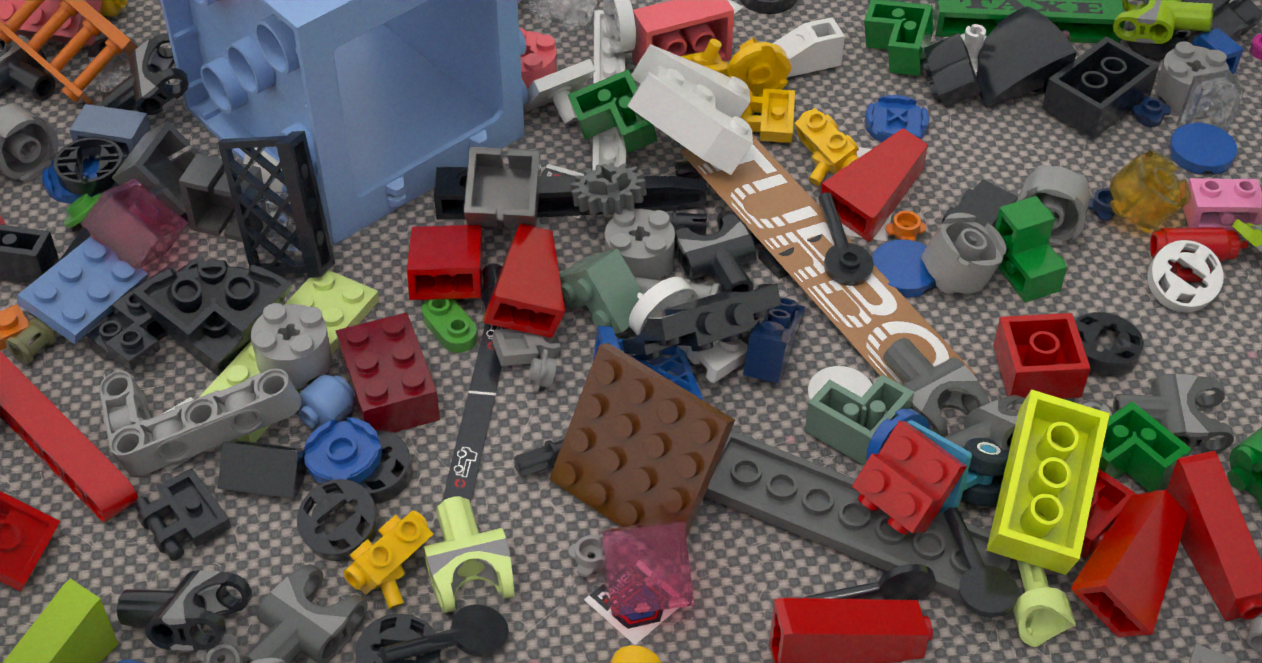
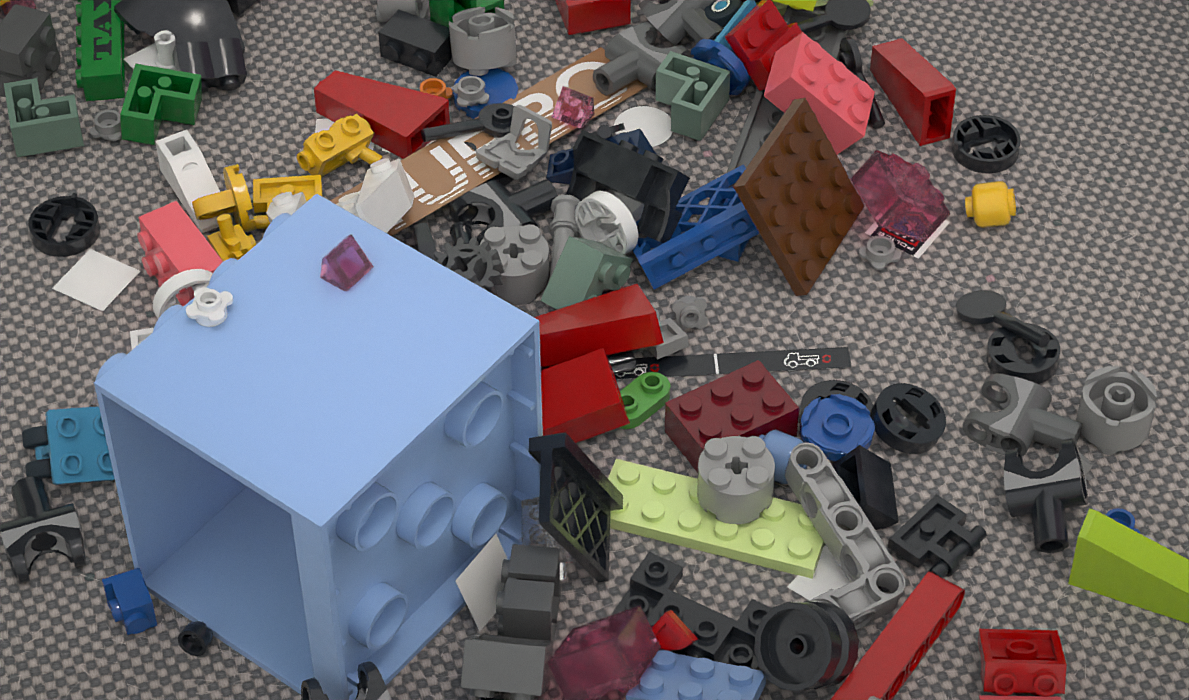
camera: 100 degrees left, 0 degrees up
(73, 354) = (806, 645): none -> black wheel
(140, 275) = (672, 632): none -> red tile
(211, 307) = (700, 552): black brick -> none
(380, 562) = (939, 372): yellow brick -> none
(466, 554) = (913, 326): yellowish green connector -> none
(537, 459) = (783, 291): black axle -> none
(789, 252) = (504, 153): none -> light grey piece
(813, 334) = (605, 131): none -> black piece
(820, 515) = (832, 90): none -> coral brick
(857, 321) = (574, 107): none -> clear pink slope
(892, 244) = (470, 91): none -> light grey plate
(893, 114) = (273, 113): blue tile -> none

